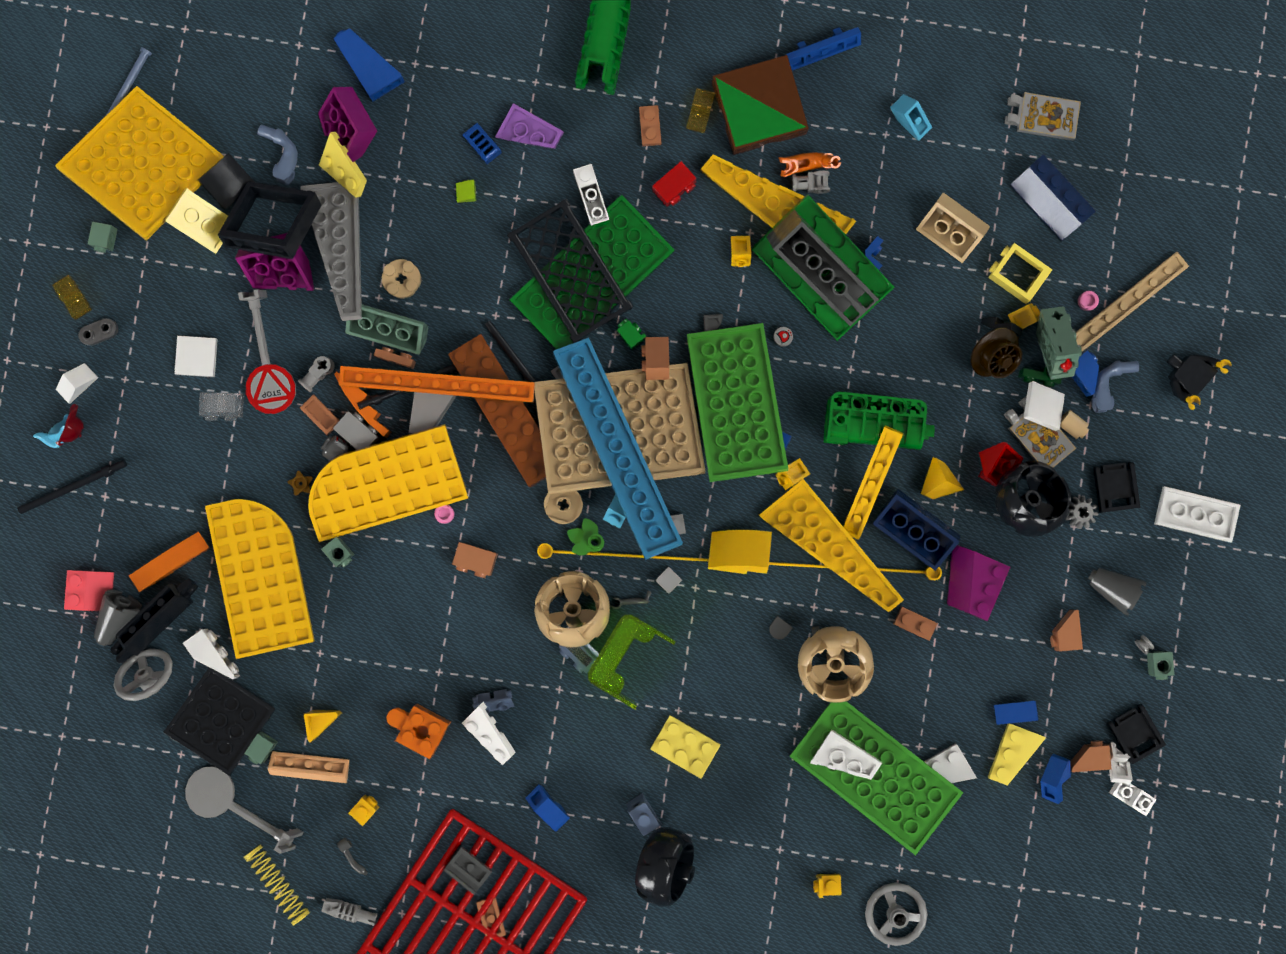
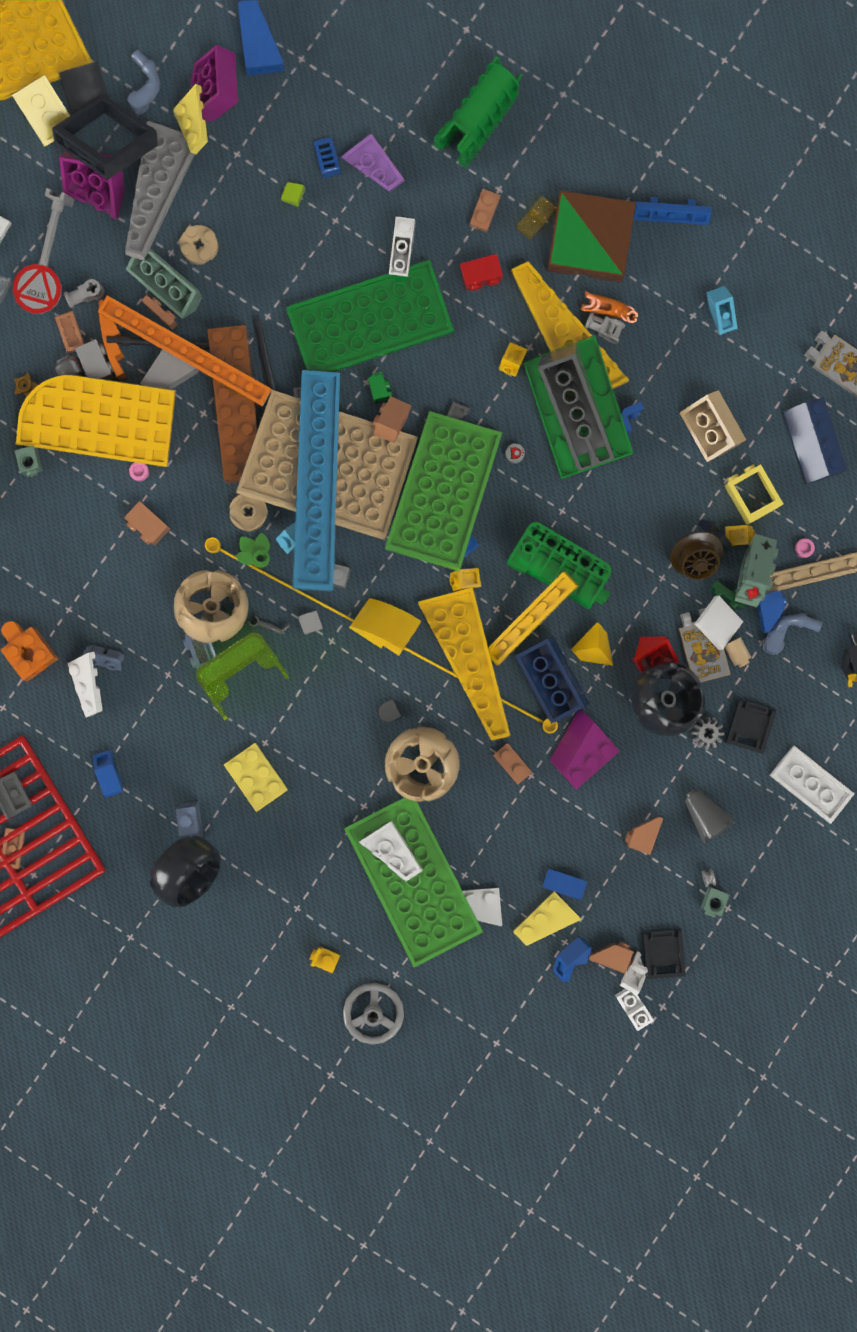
camera: 25 degrees right, 0 degrees up
(565, 205) = (322, 303): black door -> none

